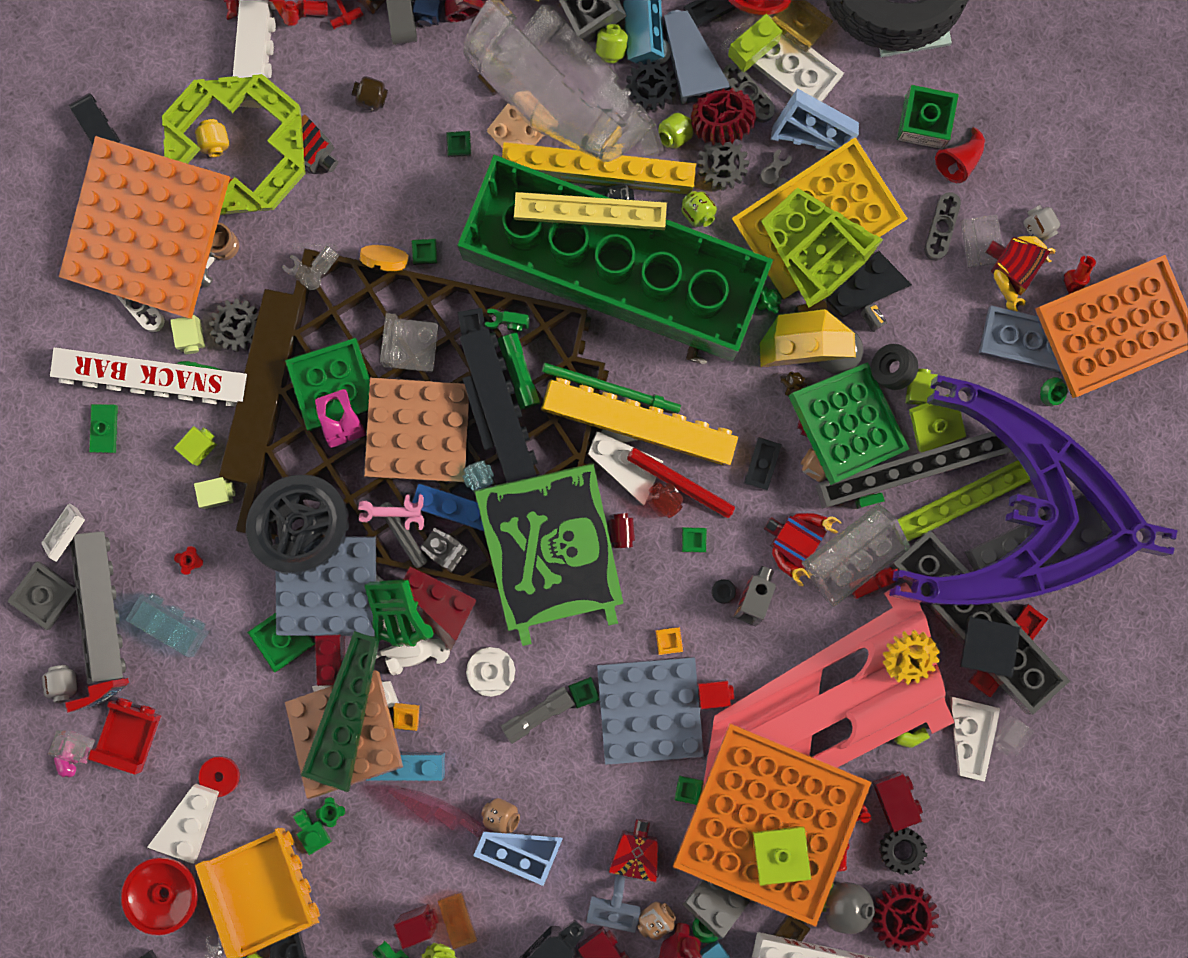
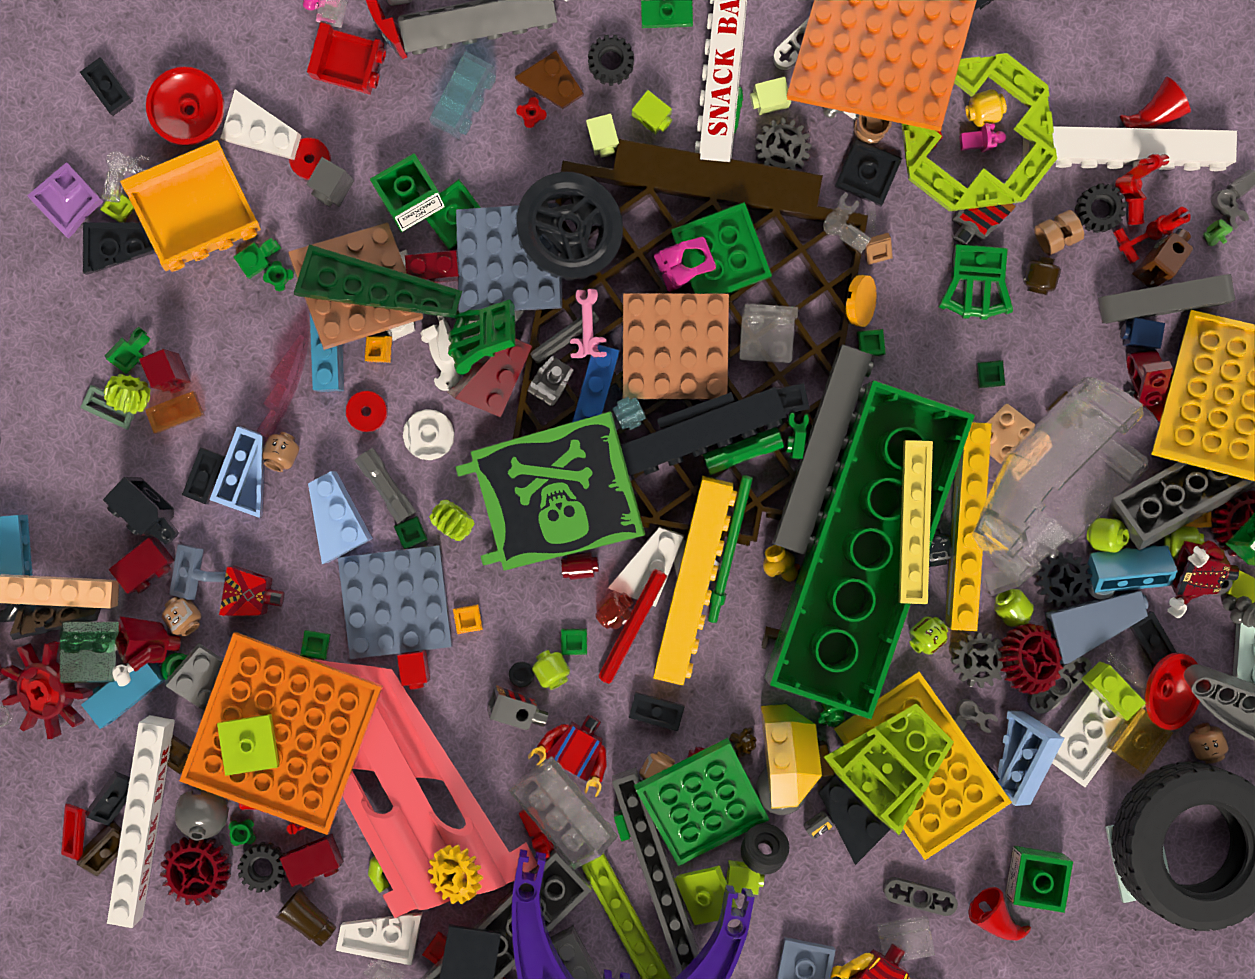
camera: 90 degrees right, 5 degrees up
(129, 482) = (615, 45): none -> black tyre
(159, 540) = (551, 81): none -> reddish brown wing
(241, 143) = (983, 139): none -> dark pink piece
(243, 755) = (329, 183): none -> dark grey brick
(257, 680) = (407, 192): none -> green brick
(265, 248) = (868, 172): none -> black tile
(304, 27) = (1115, 208): none -> black tyre
(331, 78) = (1063, 231): none -> medium nougat wheel
(337, 240) = (878, 249): none -> medium nougat tile
(357, 147) = (981, 265): none -> green plate
(476, 727) = (378, 411): none -> red piece
(520, 893) = (203, 475): none -> black plate
(521, 297) = (822, 449): none -> dark grey brick
(567, 764) = (335, 518): none -> light blue wedge
(573, 651) = (451, 520): none -> lime gear
(626, 342) = (780, 562): none -> yellow animal
(719, 562) = (551, 669): none -> lime head
(865, 876) = (236, 837): none -> green plate
(953, 809) = (306, 918): none -> dark brown plant

